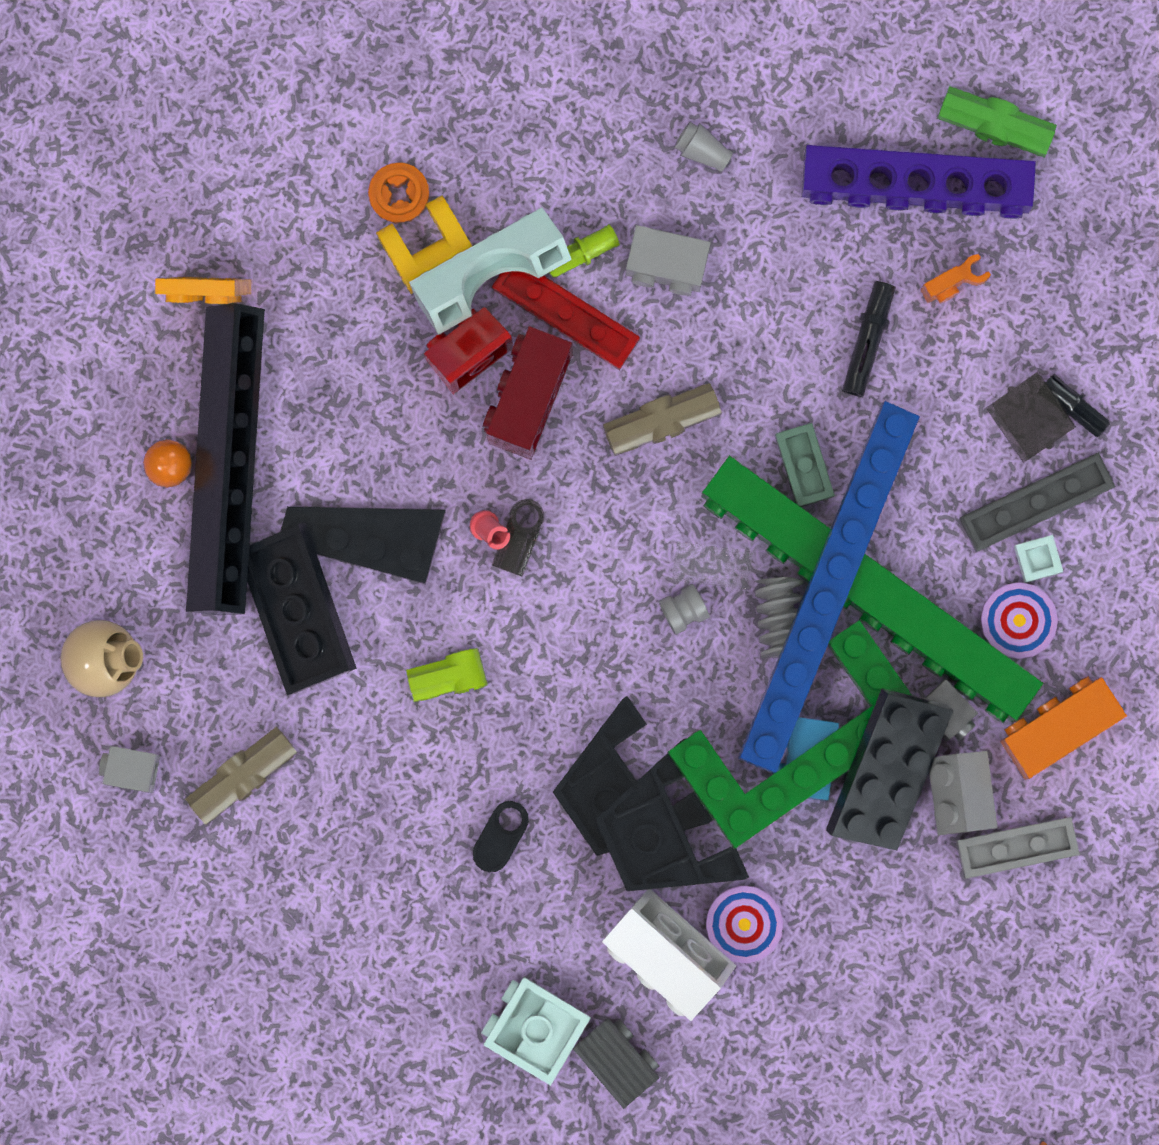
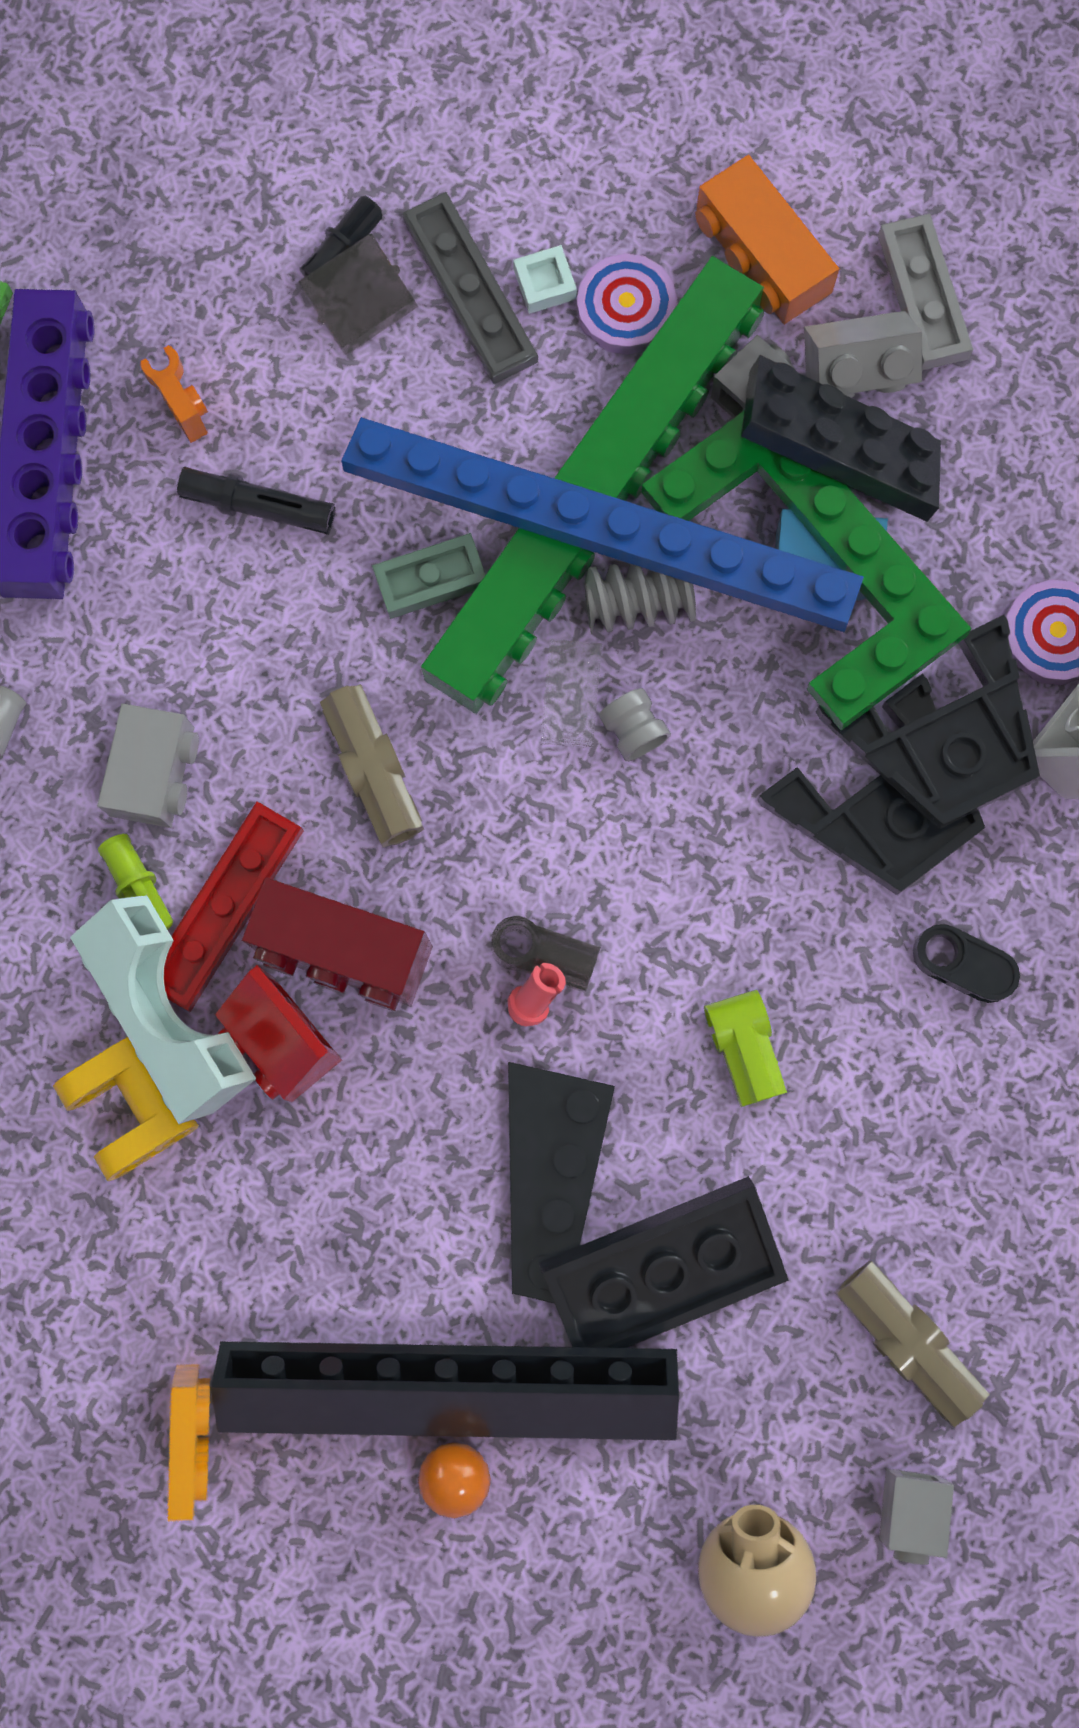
camera: 90 degrees left, 5 degrees down
(397, 175) = (25, 1155): orange gear -> none

